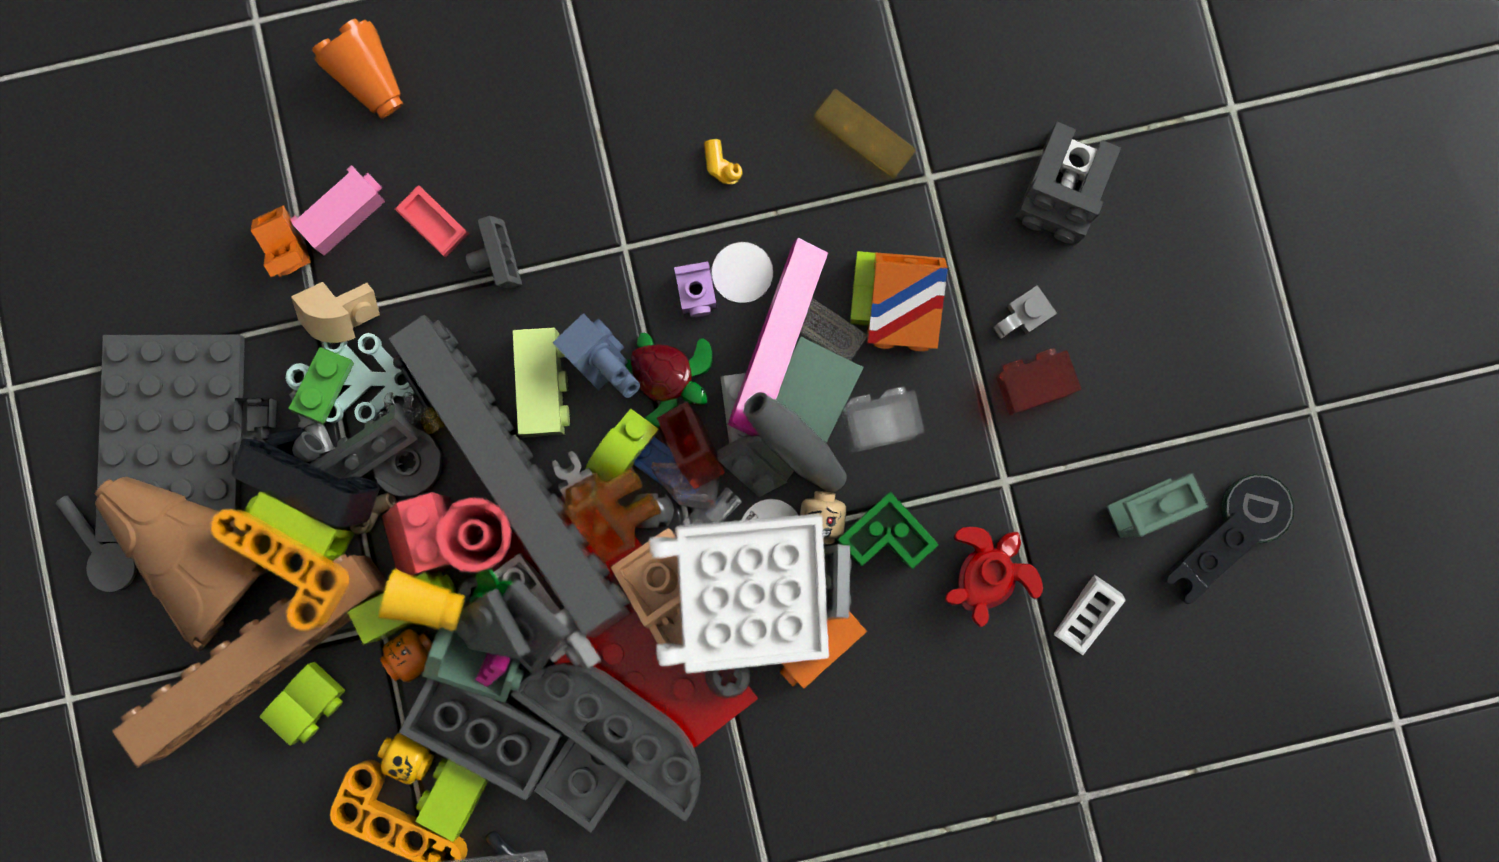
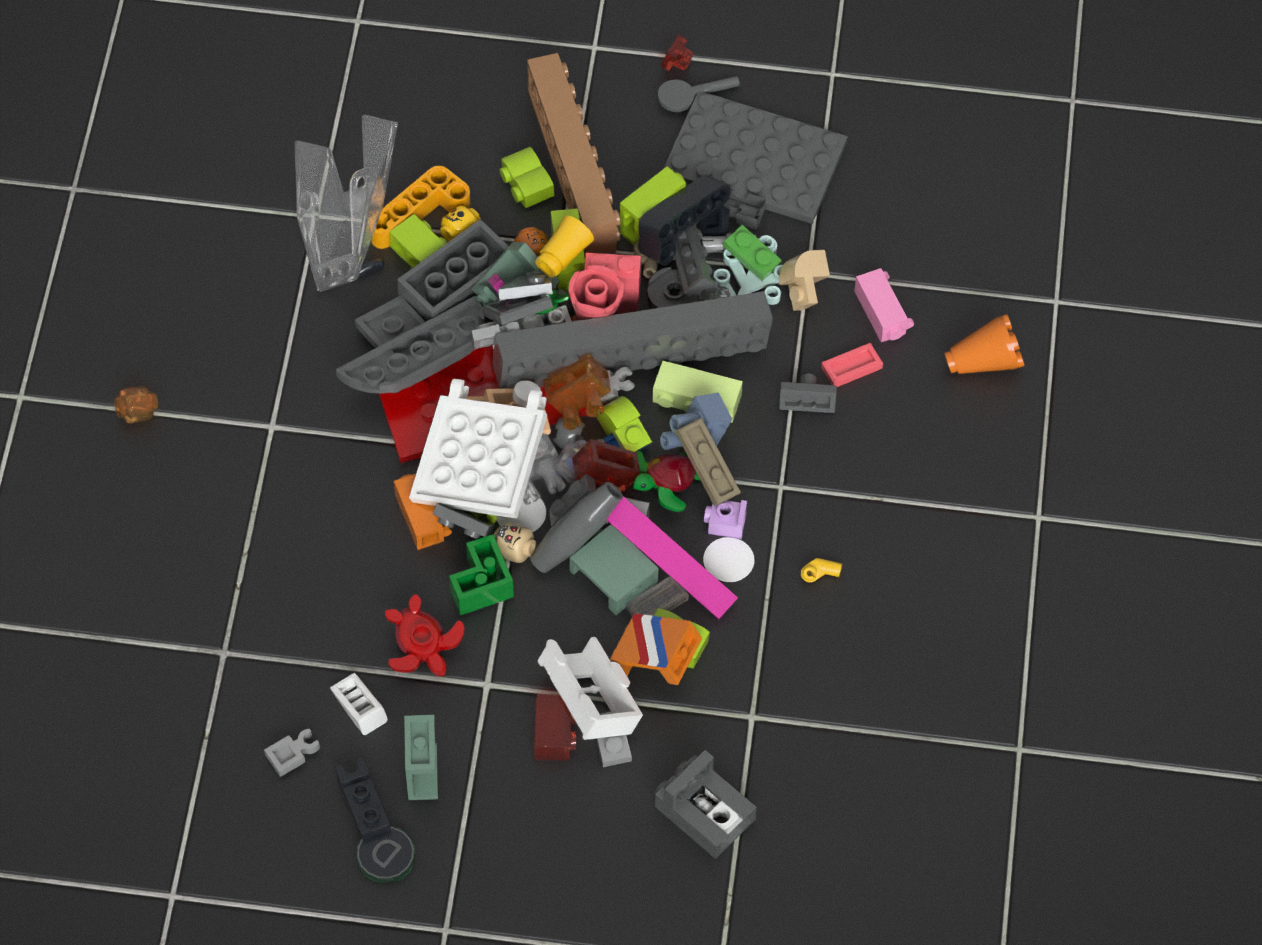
camera: 105 degrees right, 25 degrees down
(48, 587) = (678, 55): none -> clear red tile
(179, 555) = (665, 133): medium nougat cone -> none
(278, 561) = (638, 174): light orange beam -> none
(280, 242) = (870, 258): orange brick -> none
(307, 447) = (709, 229): dark grey hinge -> none
(632, 574) = (522, 390): none -> white piece
(650, 323) = (708, 462): none -> dark tan tile
(732, 689) = (419, 429): dark grey piece -> none
(865, 133) = (805, 679): clear yellow tile -> none
(882, 420) = (570, 599): clear brick -> none
(961, 337) = (609, 681): none -> white piece
(1186, 667) = (288, 754): none -> light grey plate

